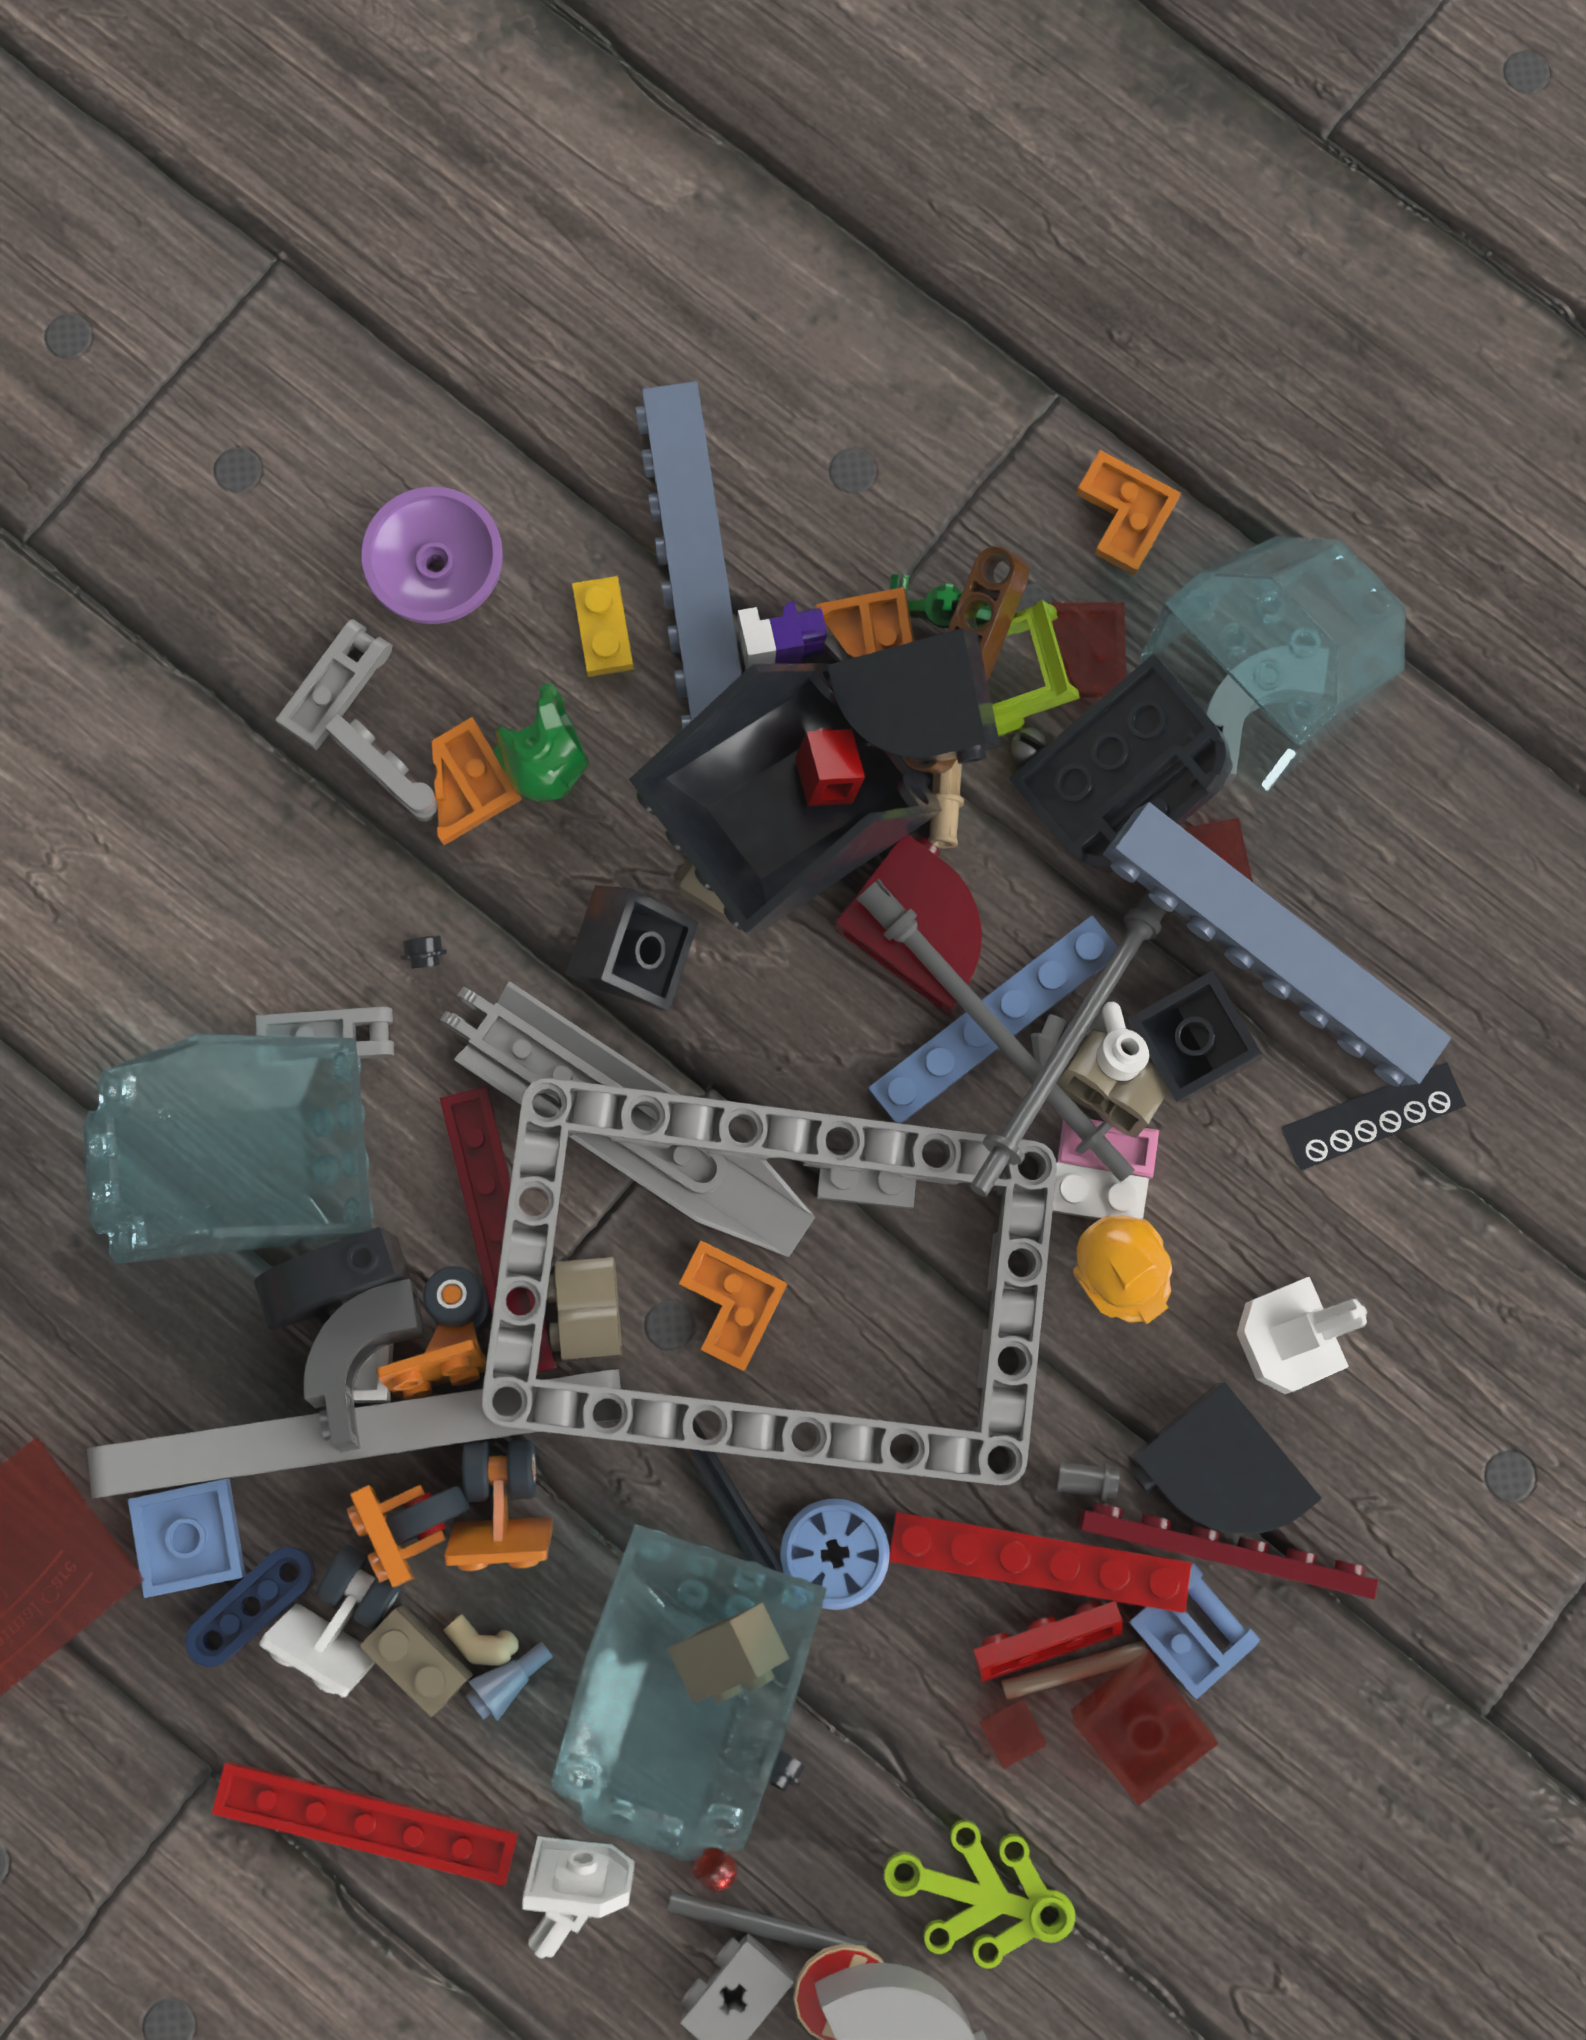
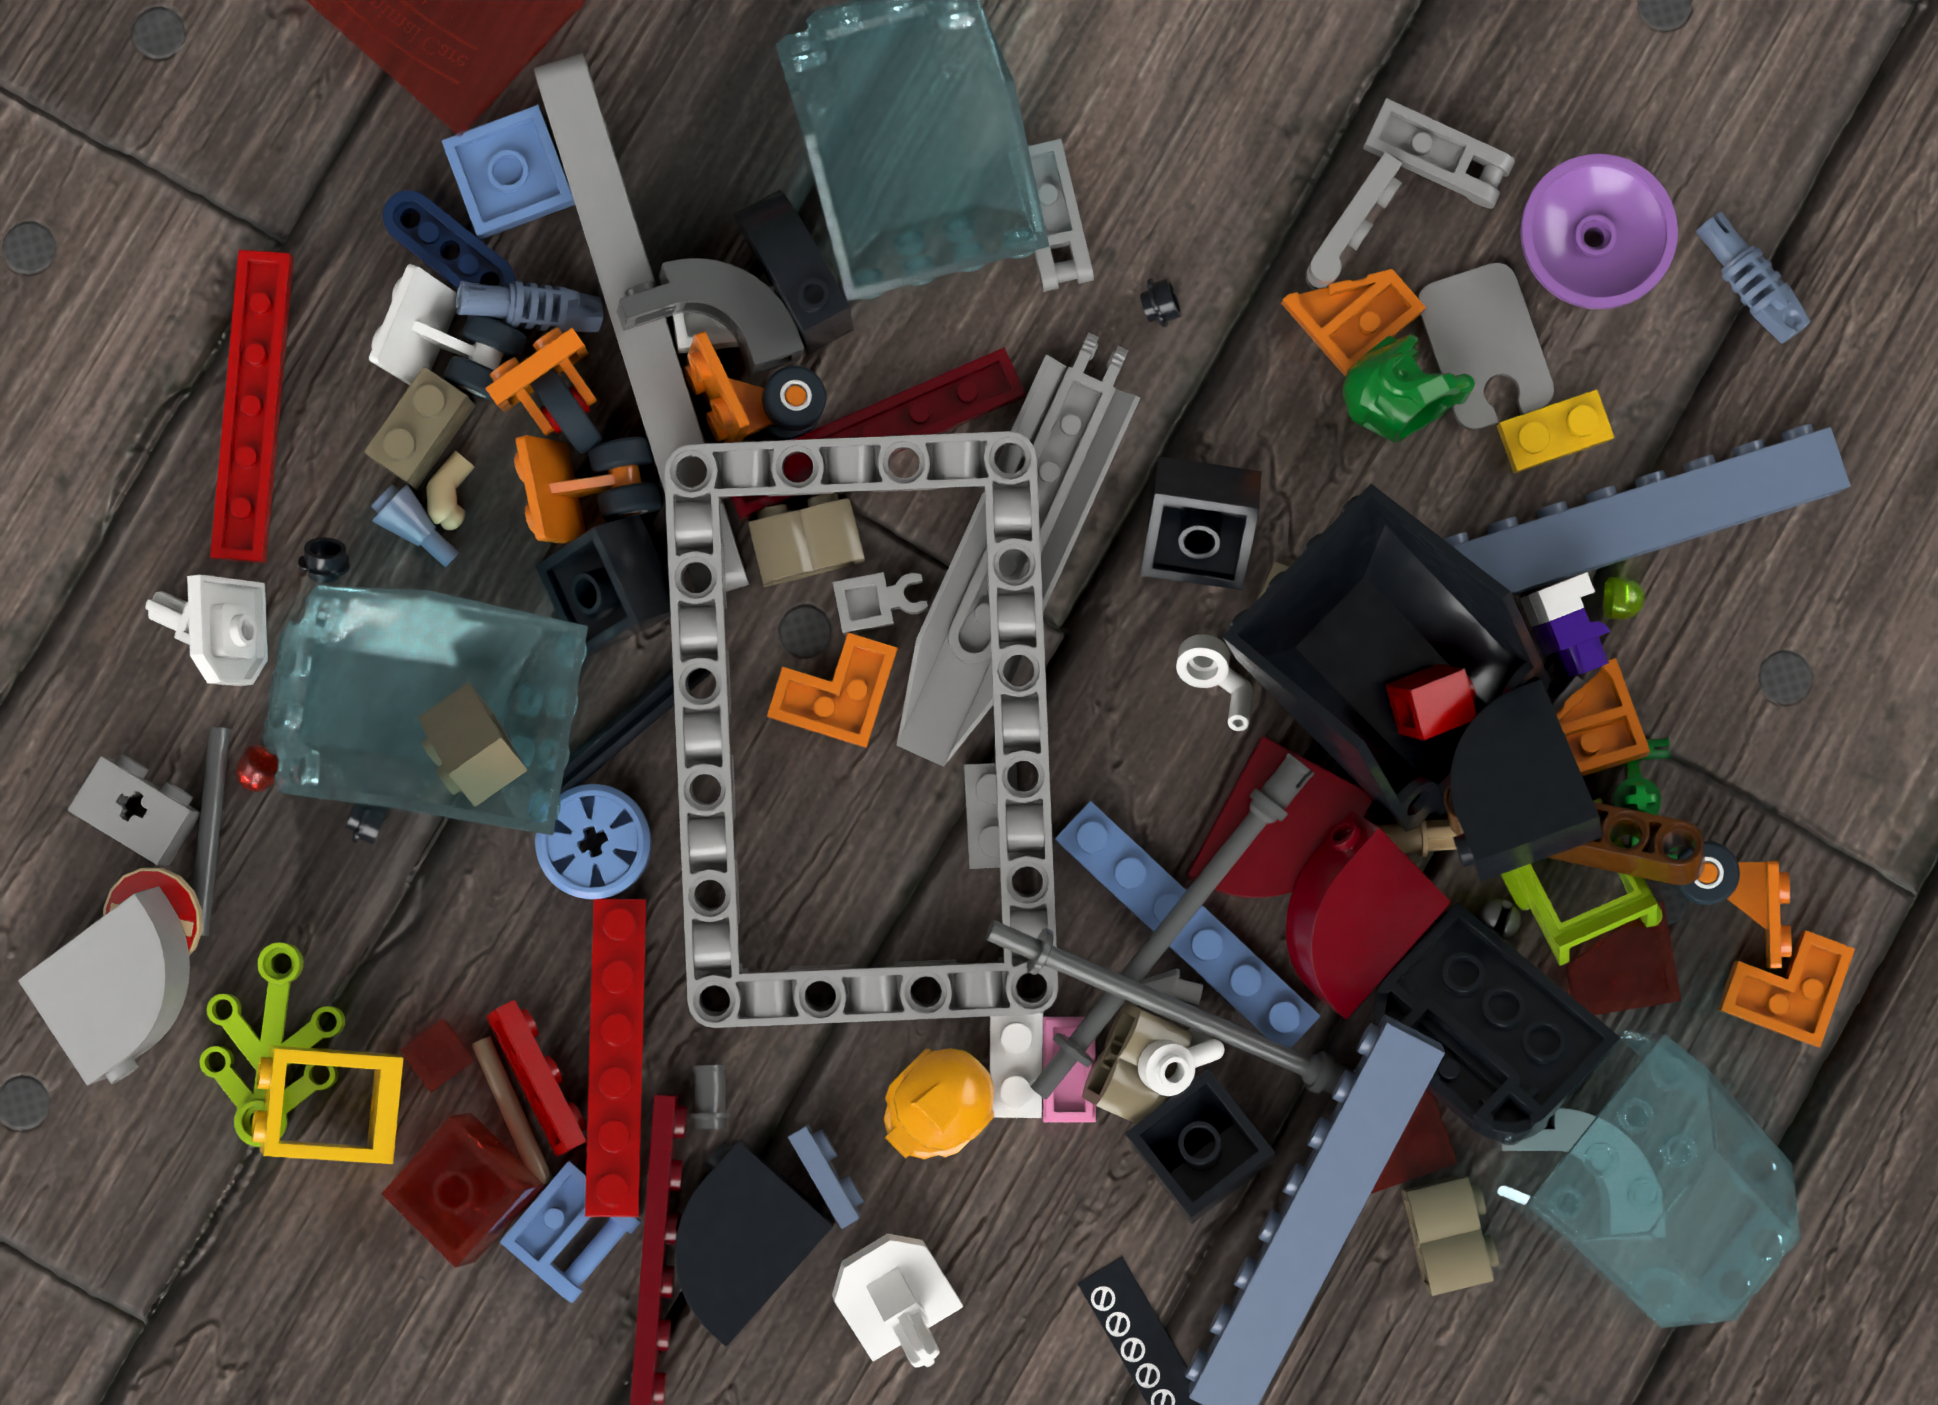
camera: 80 degrees right, 5 degrees up
(320, 1534) = (531, 306): none -> sand blue hinge
(497, 434) = (1754, 280): none -> sand blue hinge
(501, 672) = (1485, 330): none -> light grey piece
(526, 1773) = (324, 559): none -> black plate
(594, 1500) = (609, 582): none -> black slope
(653, 1260) = (867, 601): none -> light grey plate
(760, 964) = (1205, 664): none -> white plate
(761, 592) = (1622, 598): none -> clear neon green hinge
(1008, 865) = (1356, 913): none -> dark red brick
(1040, 517) = (1751, 887): none -> orange plate
(1057, 1793) = (382, 1114): none -> yellow window
(1193, 1373) = (839, 1194): none -> sand blue plate
(1301, 835) = (1449, 1234): none -> dark tan brick

